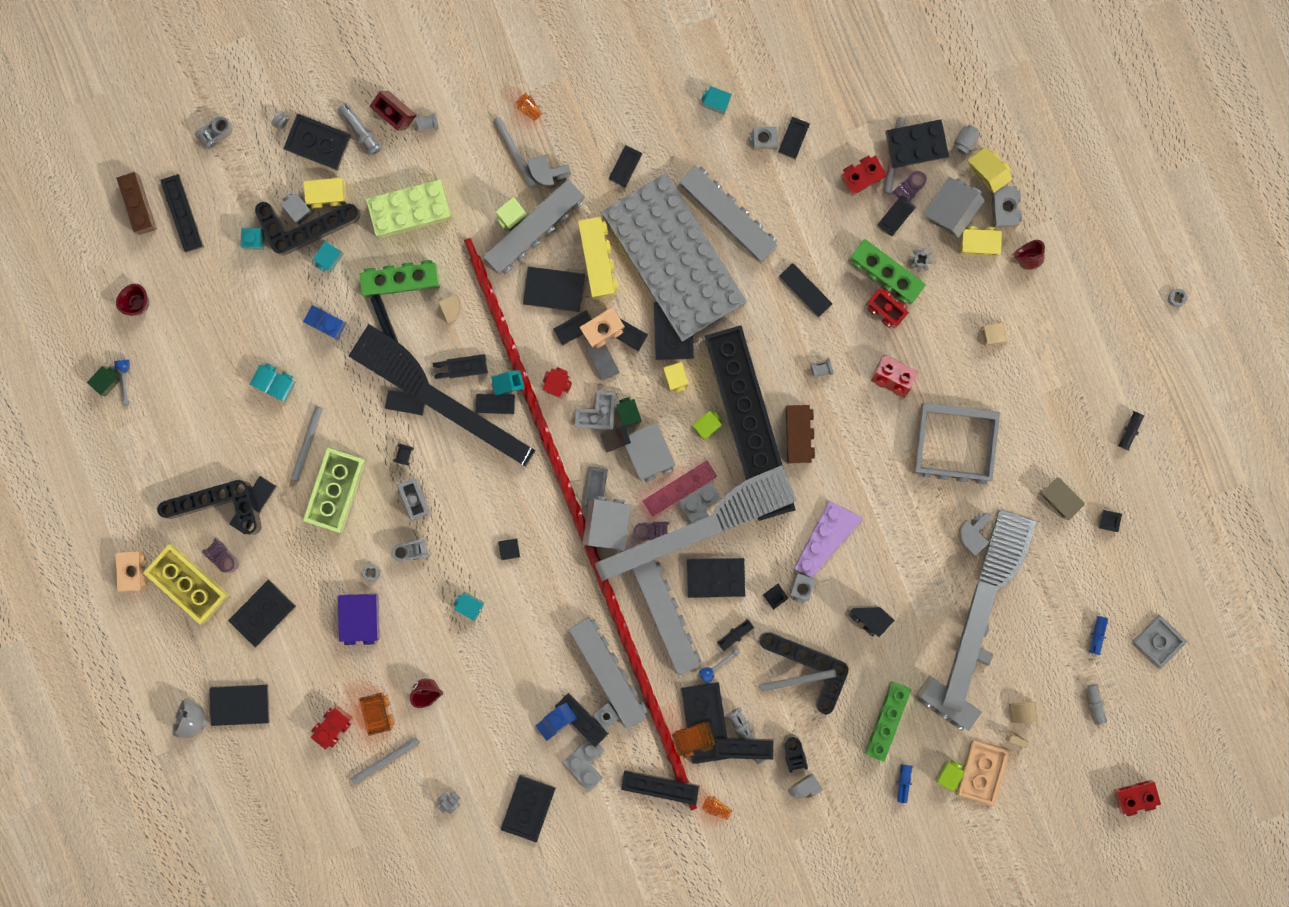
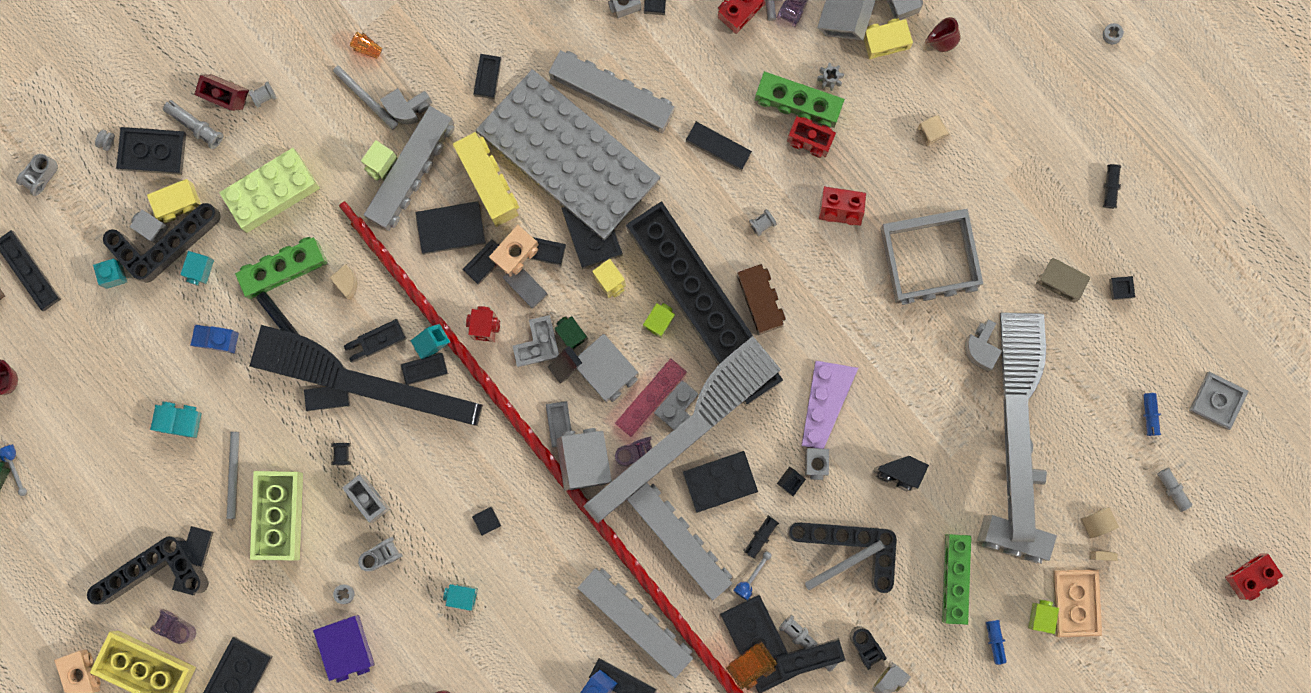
camera: 20 degrees left, 5 degrees down
(606, 708) = (648, 662): light grey plate -> none
(896, 215) = (790, 38): black tile -> none

